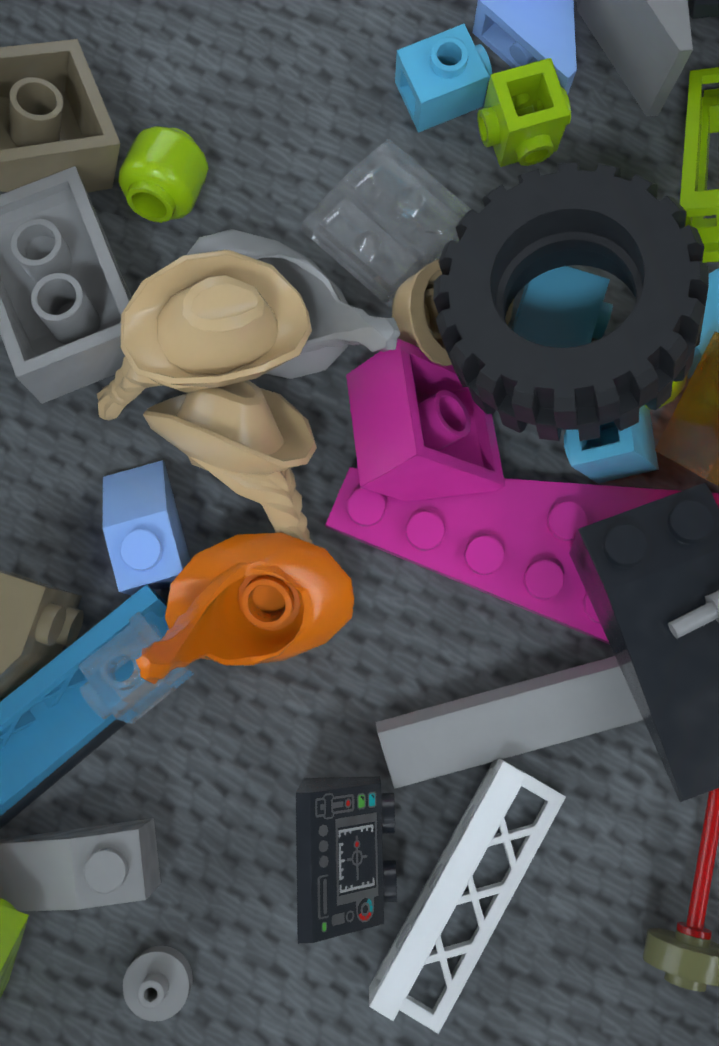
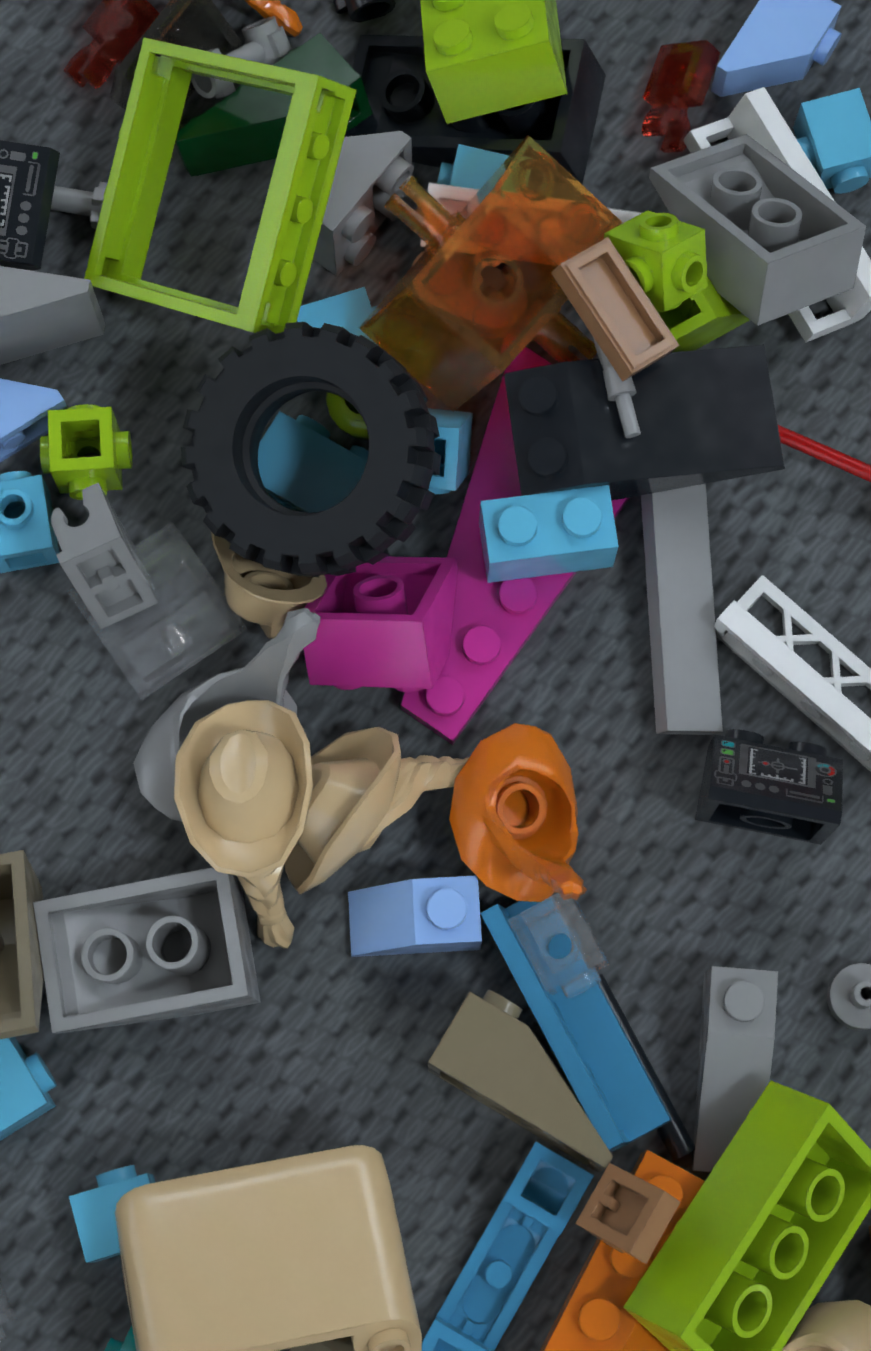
camera: 80 degrees left, 5 degrees down
(163, 174) = (50, 824): lime head -> none
(414, 139) = (103, 561): none -> light grey hinge
(549, 567) = (548, 533): none -> medium azure brick

